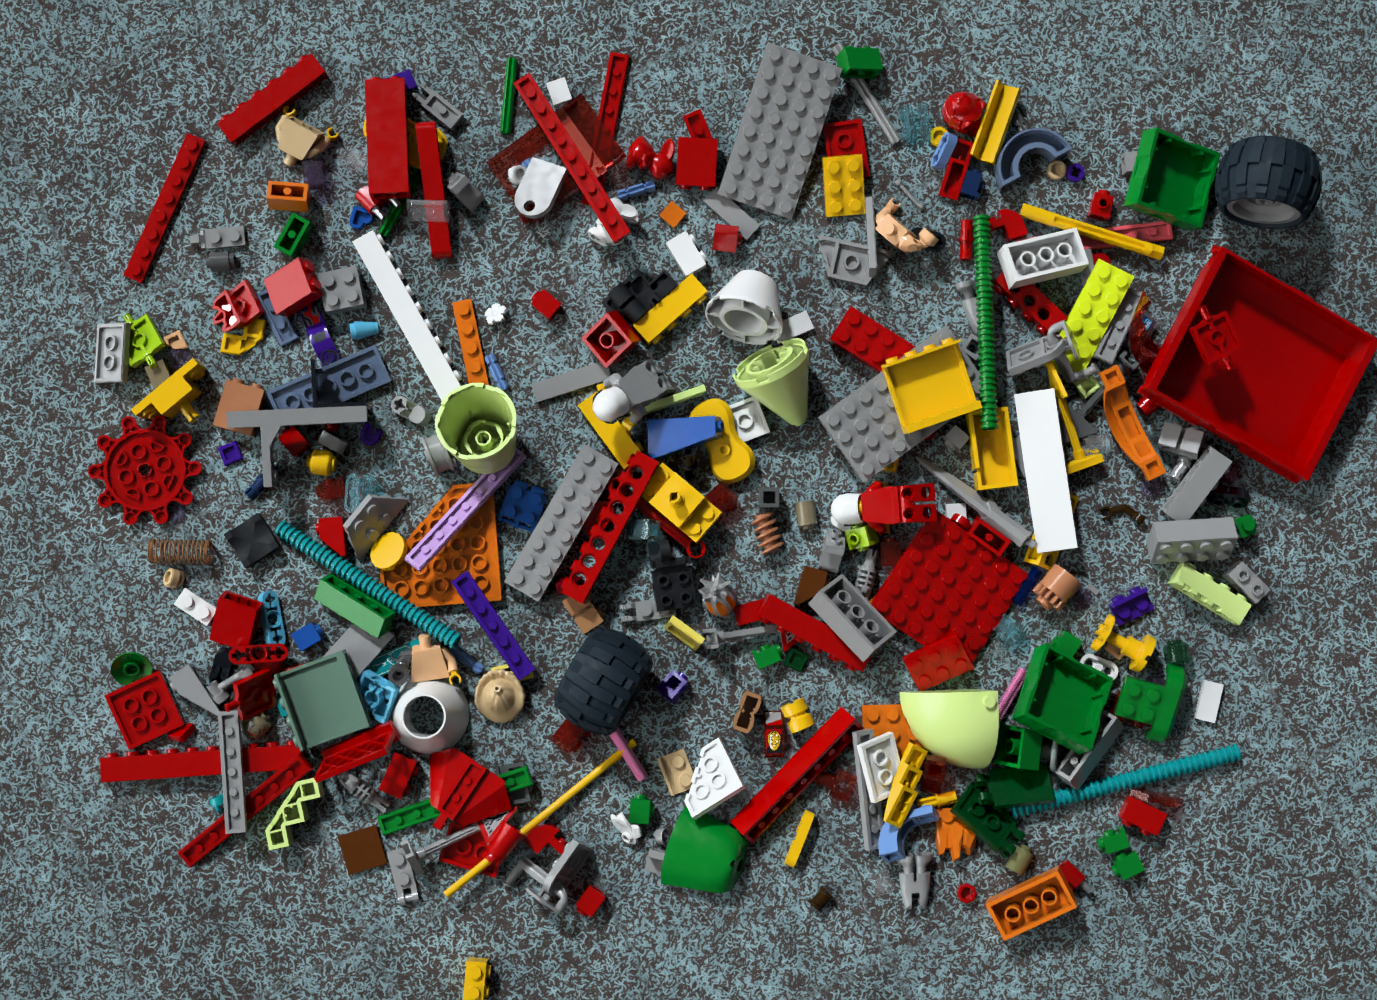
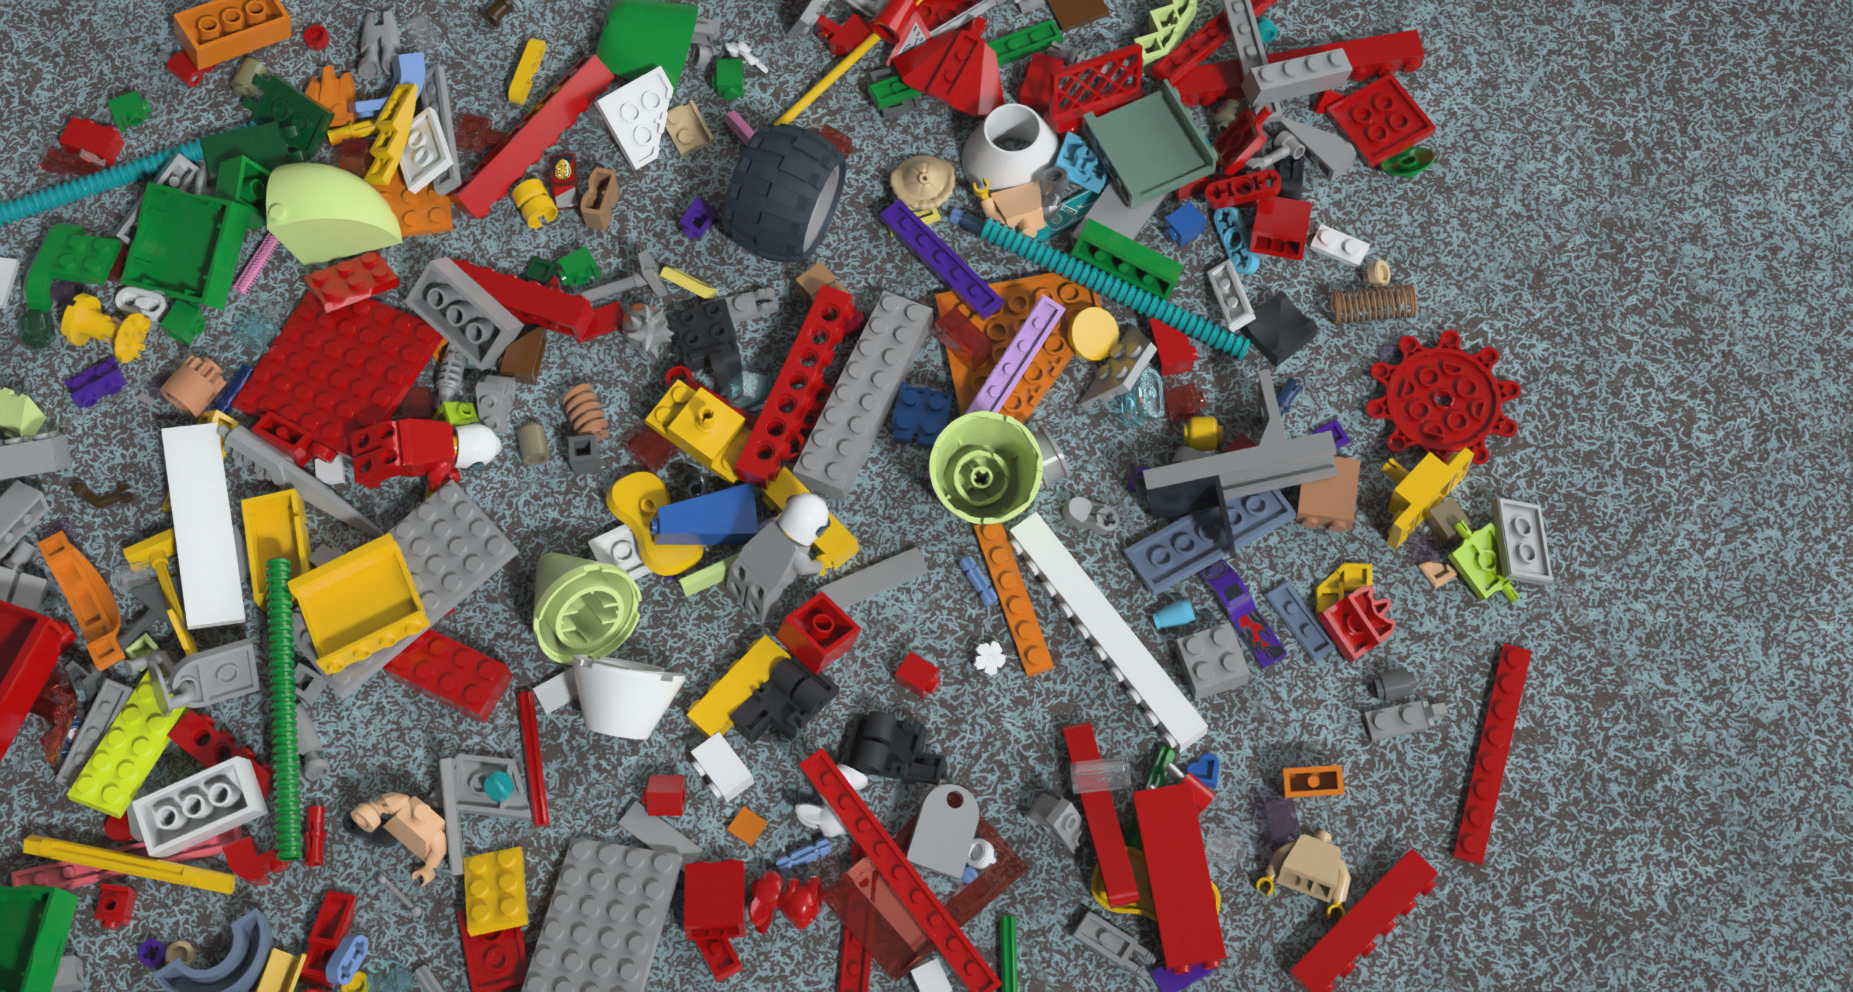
camera: 175 degrees left, 20 degrees down
(200, 738) = (1296, 77): none -> light grey brick
(283, 570) = (1231, 295): none -> white tile
(293, 287) = (1281, 651): brick -> none
(294, 236) = (1294, 726): green brick -> none
(483, 553) = (963, 339): none -> clear red brick
(570, 253) = (892, 748): none -> black plate
(815, 276) = (533, 759): none -> red axle
(839, 256) = (498, 786): none -> teal tile
(972, 184) = (303, 914): dark blue brick -> none
(1126, 864) = (112, 84): green brick -> none

